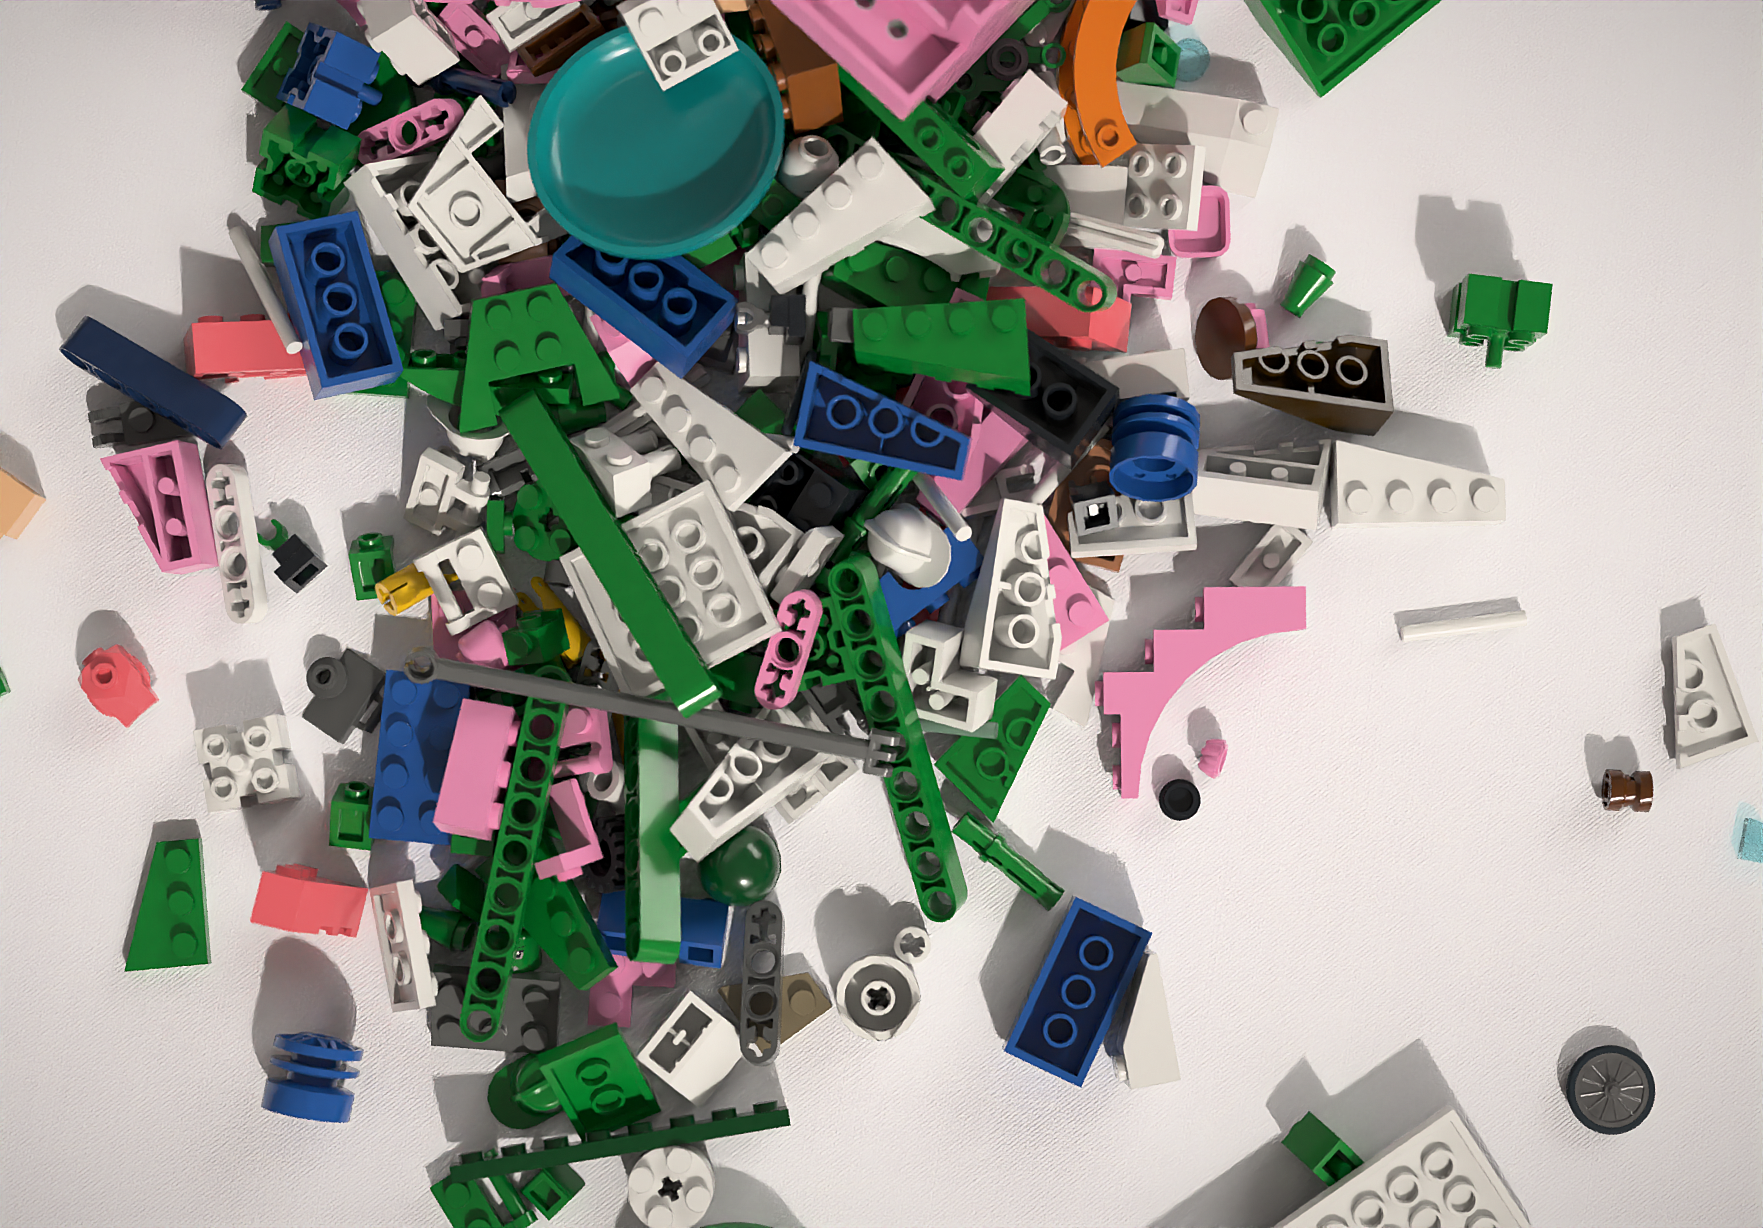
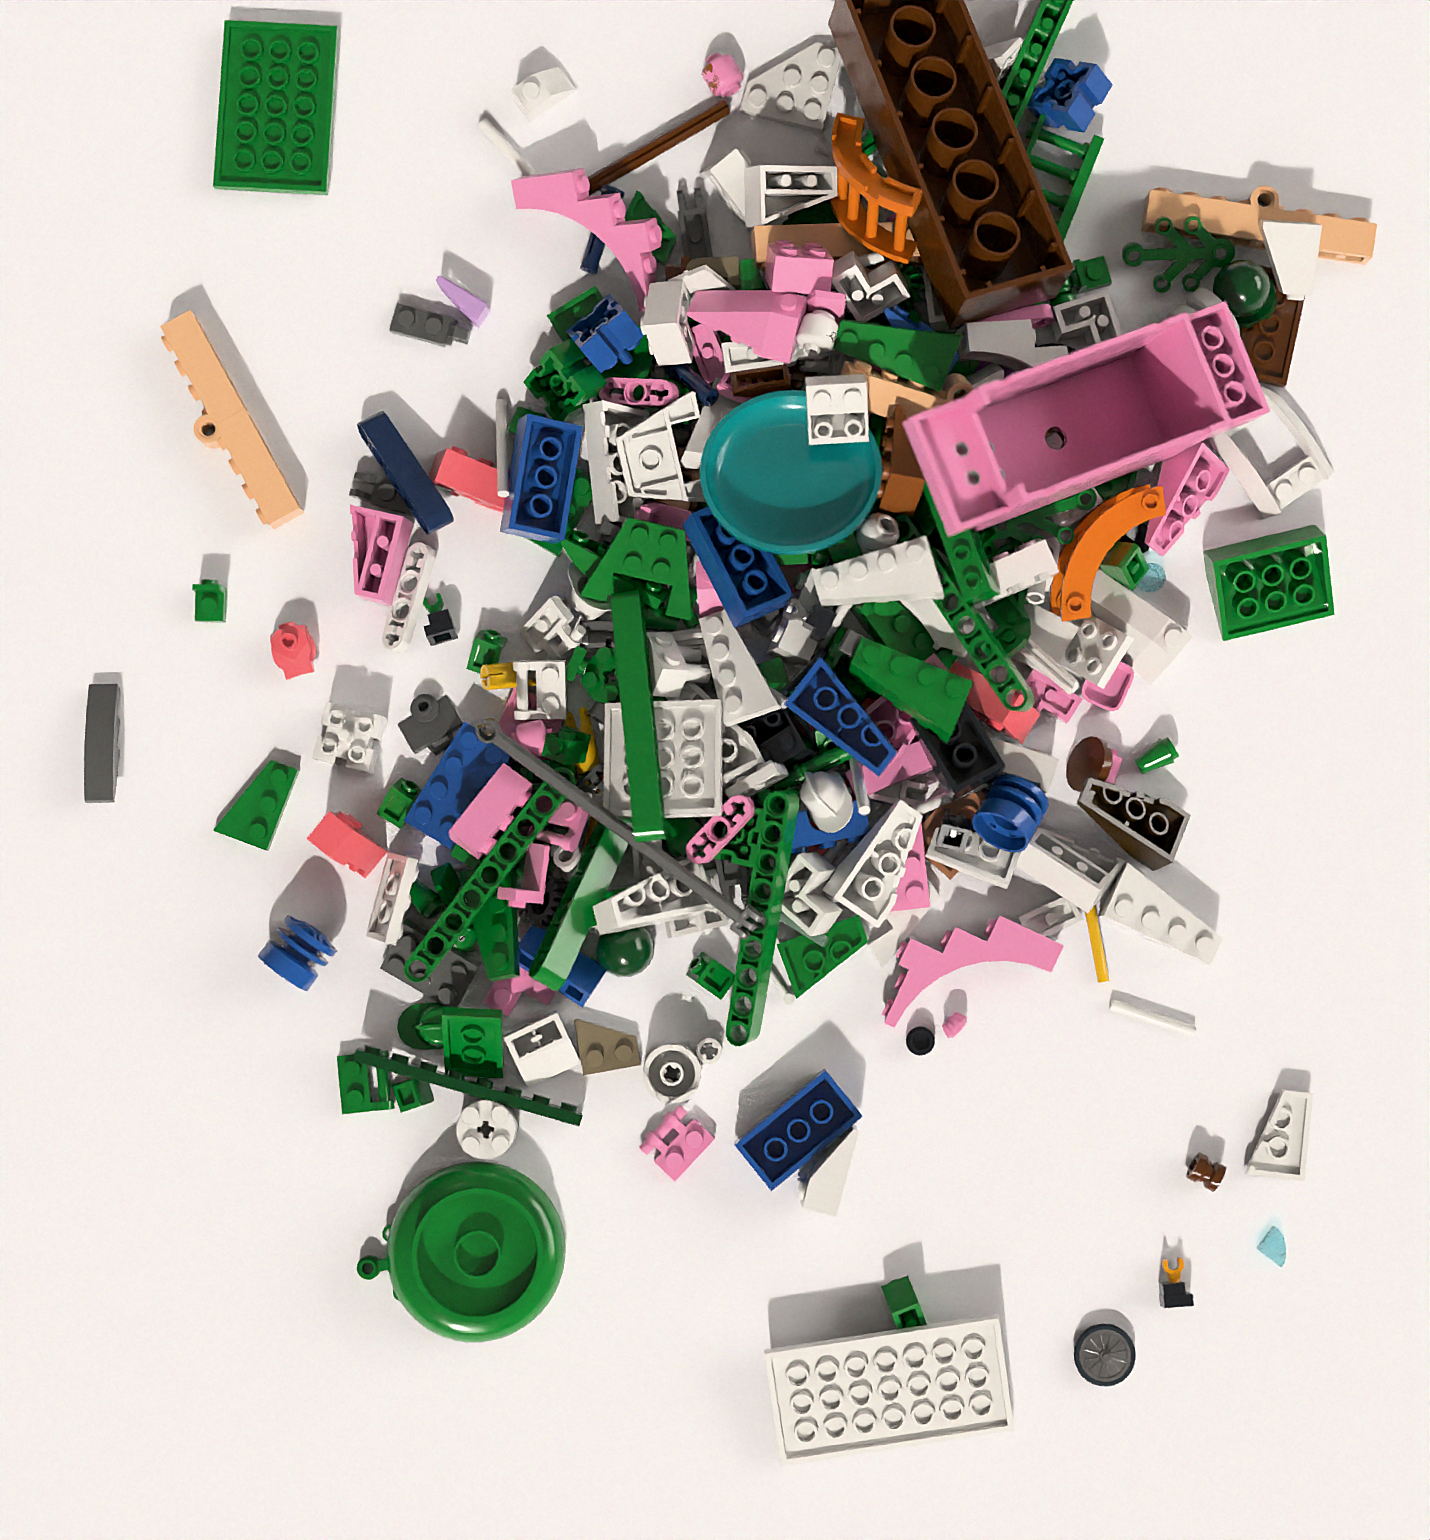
camera: 30 degrees right, 0 degrees up
(92, 179) = (427, 326): none -> dark grey hinge
(134, 124) = (471, 306): none -> lavender slope
(762, 983) = (600, 1027): dark grey beam -> none
(867, 845) = (710, 975): none -> green bracket
(940, 1089) = (683, 1149): none -> bright pink plate
(1001, 855) = (796, 1032): green pin -> none
(1019, 52) = (1044, 527): dark grey plate -> none
(1347, 567) = (1097, 946): none -> yellow bar
(1501, 312) = (1270, 831): green brick -> none
(1660, 965) = (1173, 1292): none -> black piece

